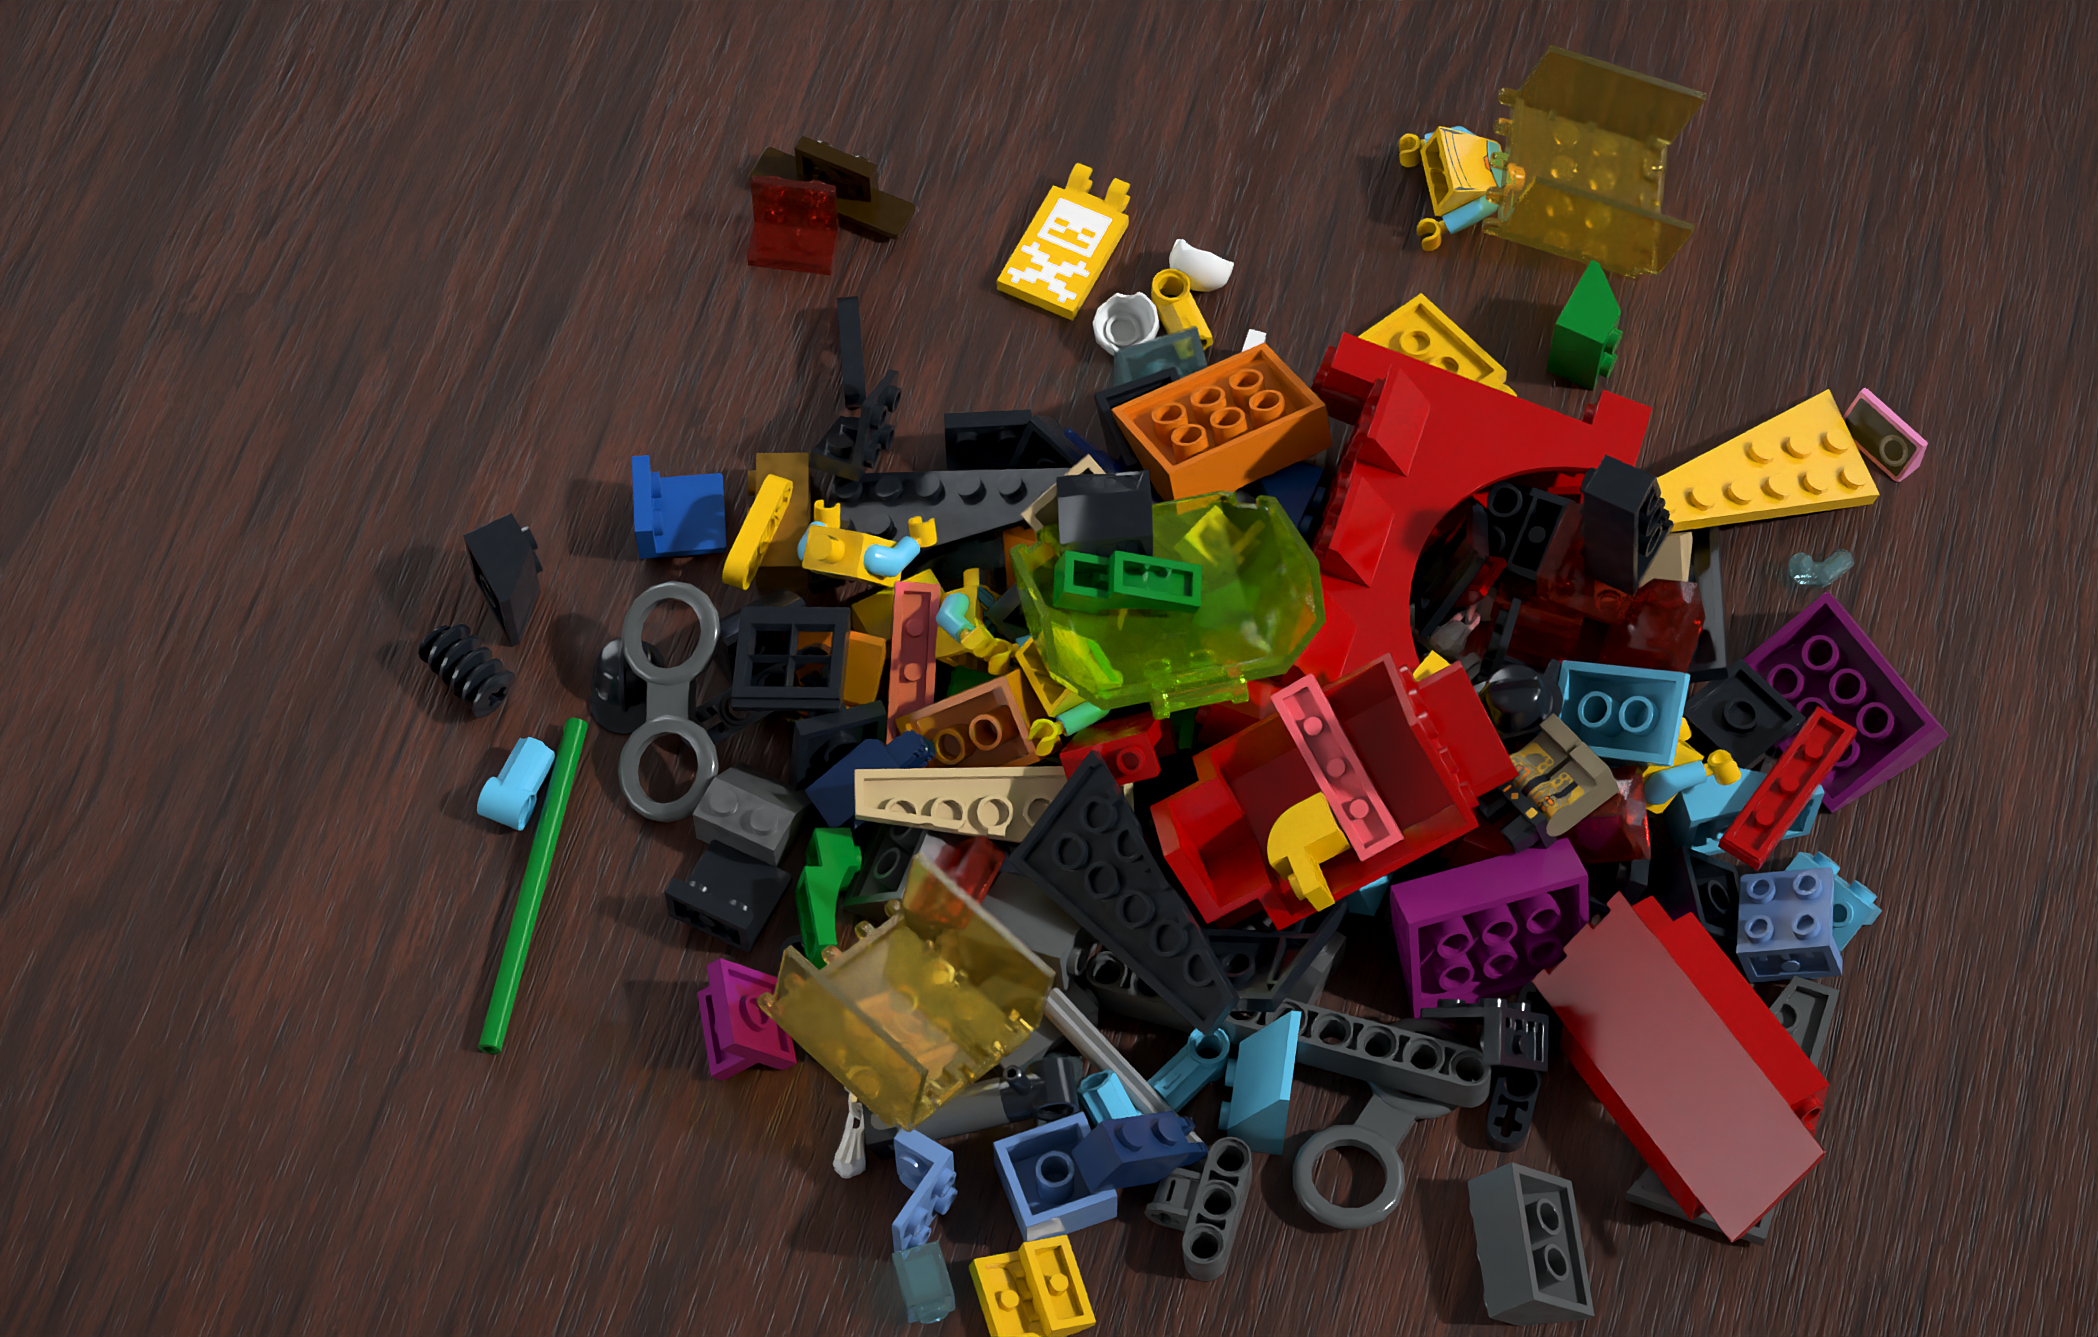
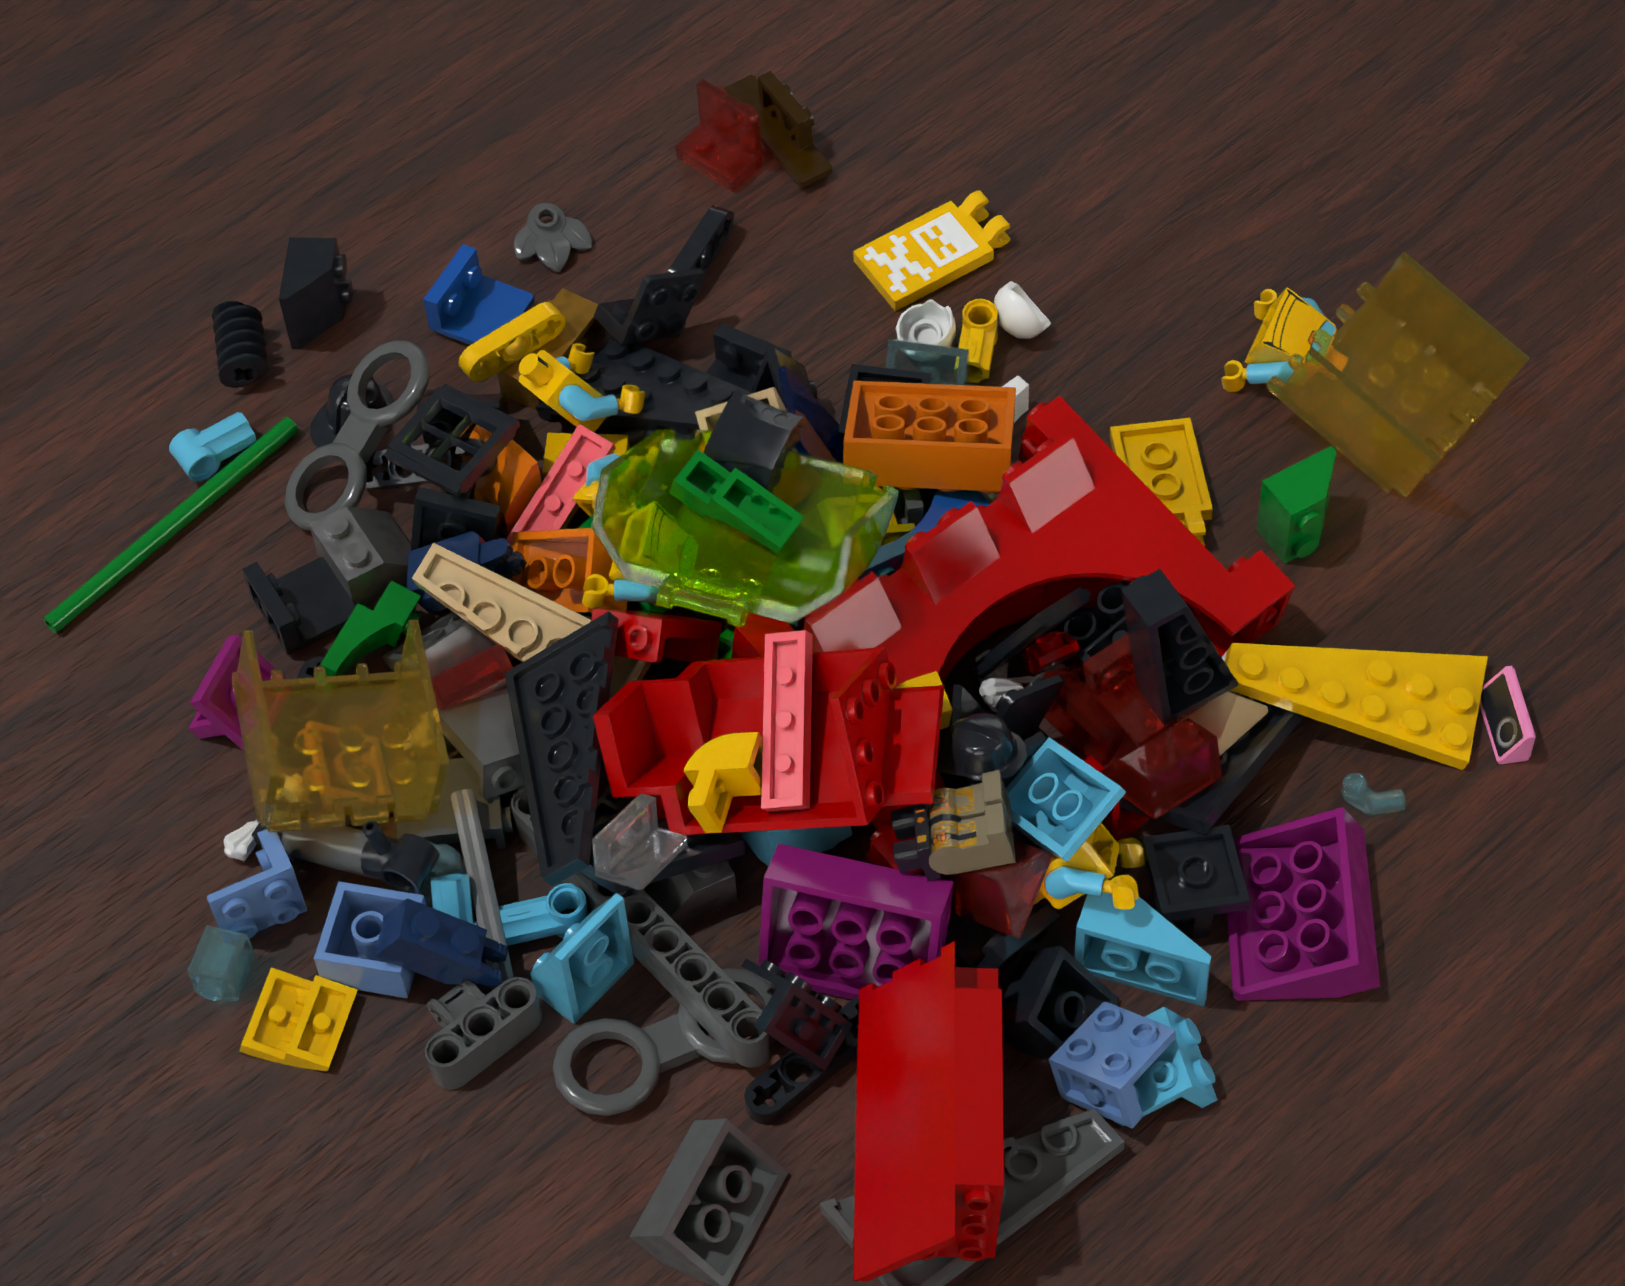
camera: 35 degrees right, 5 degrees down
(696, 410) = (552, 240): none -> dark grey plate
(1269, 959) = (634, 847): none -> clear panel
(1787, 788) = (1176, 942): red tile -> none

